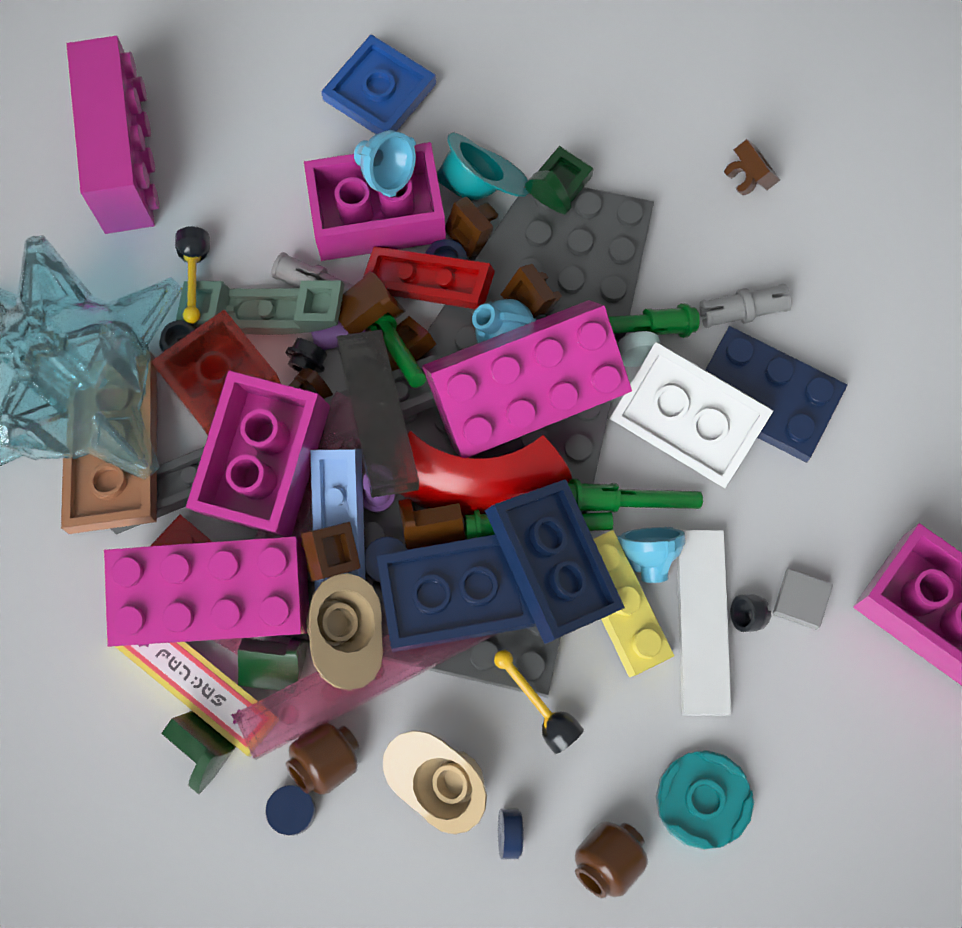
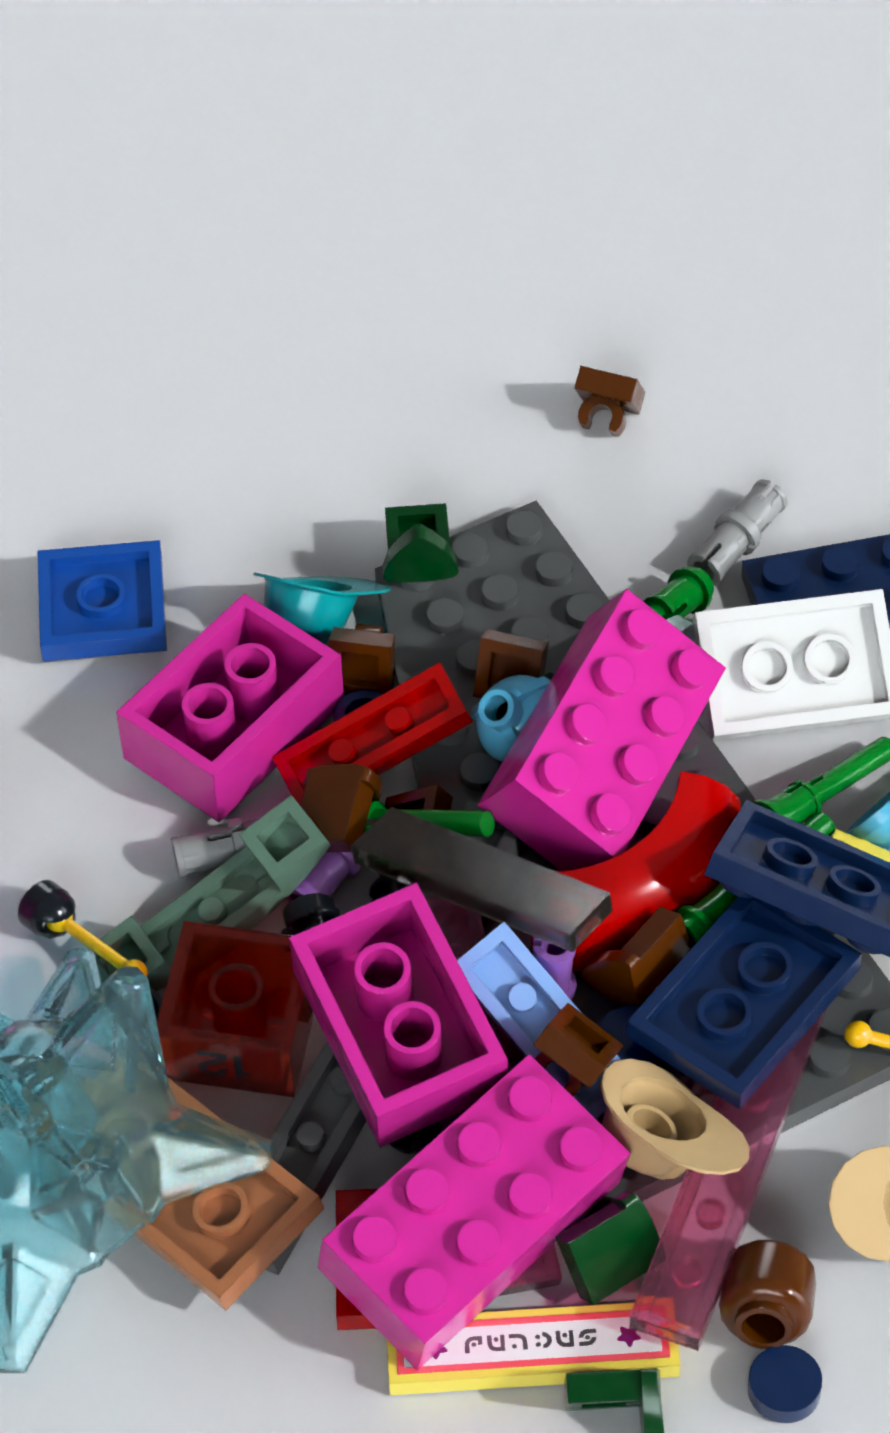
camera: 40 degrees left, 20 degrees down
(386, 161) = (223, 636): medium azure piece -> none

